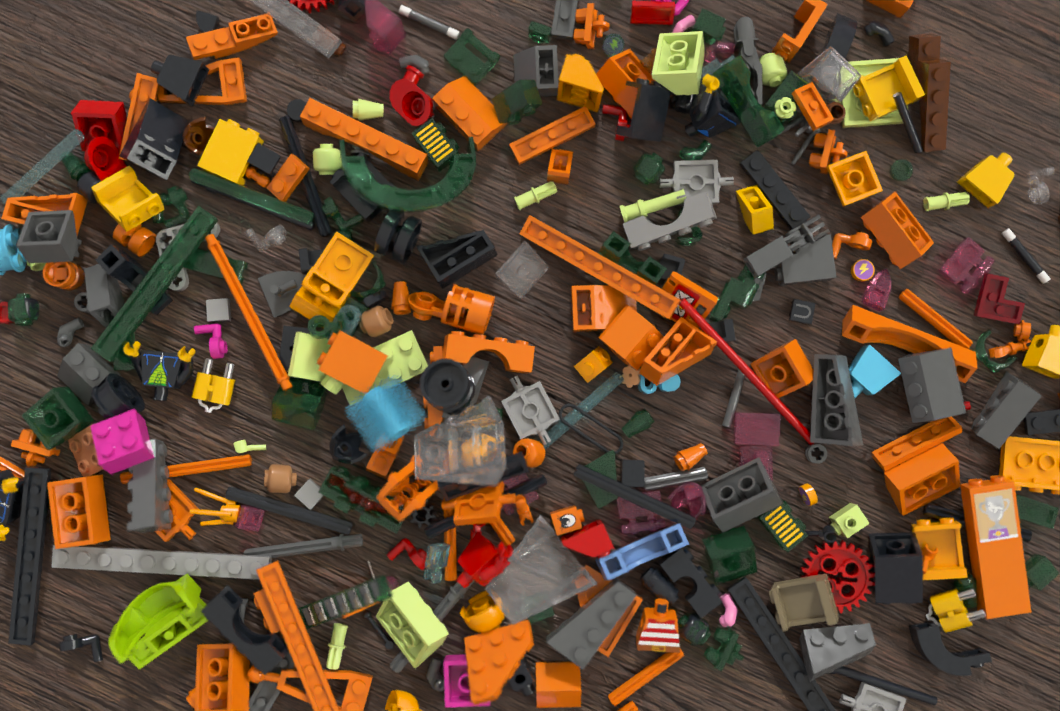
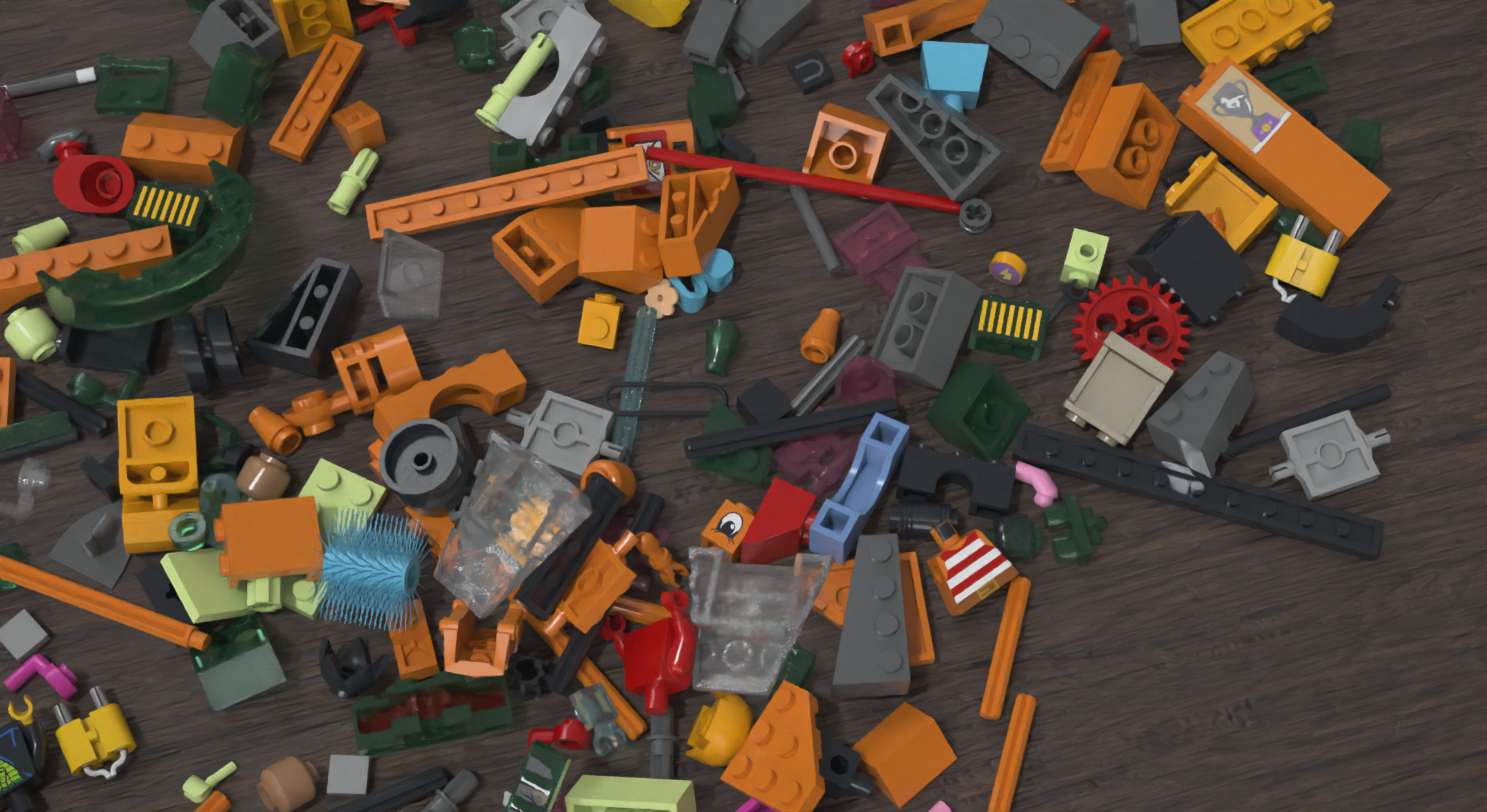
camera: 40 degrees left, 20 degrees down
(831, 324) = (858, 58): none -> red plate

